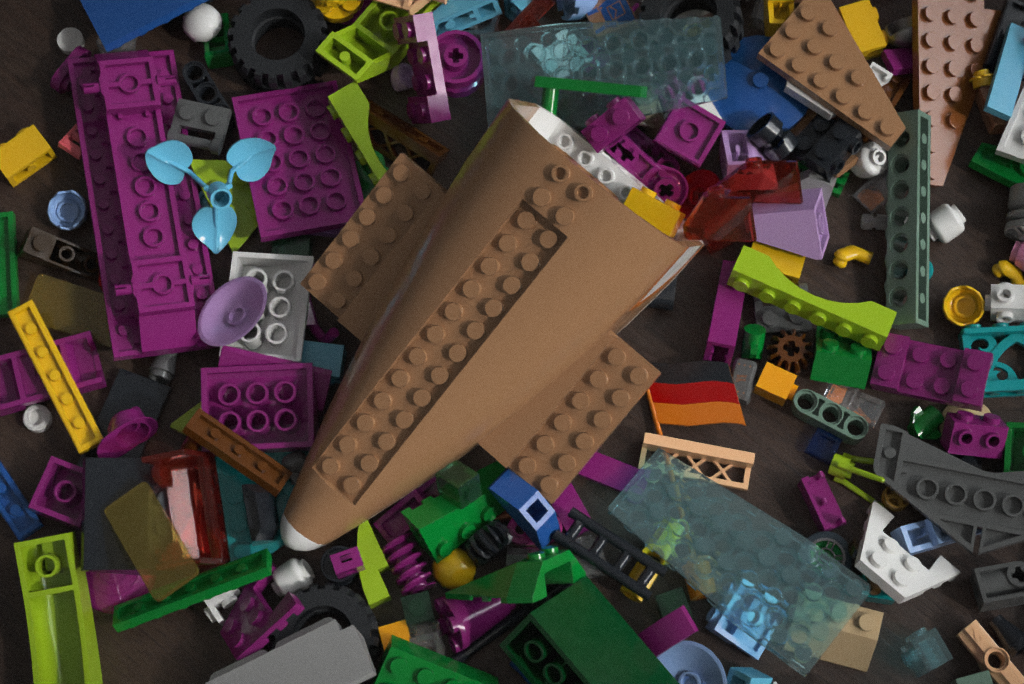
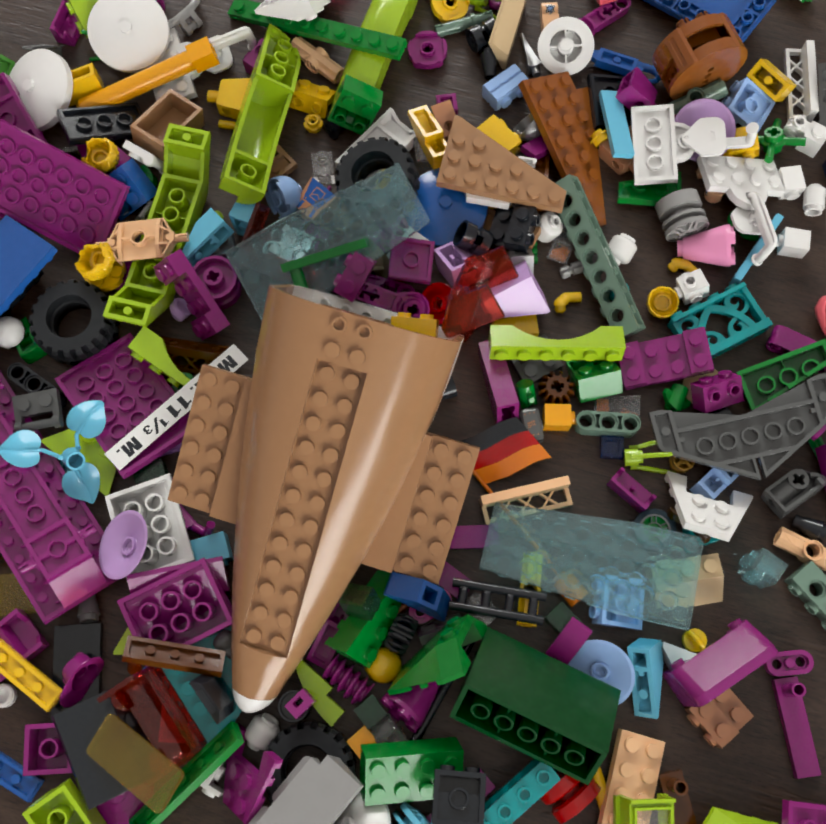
camera: 25 degrees left, 0 degrees up
(342, 189) = (167, 413): none -> white sticker

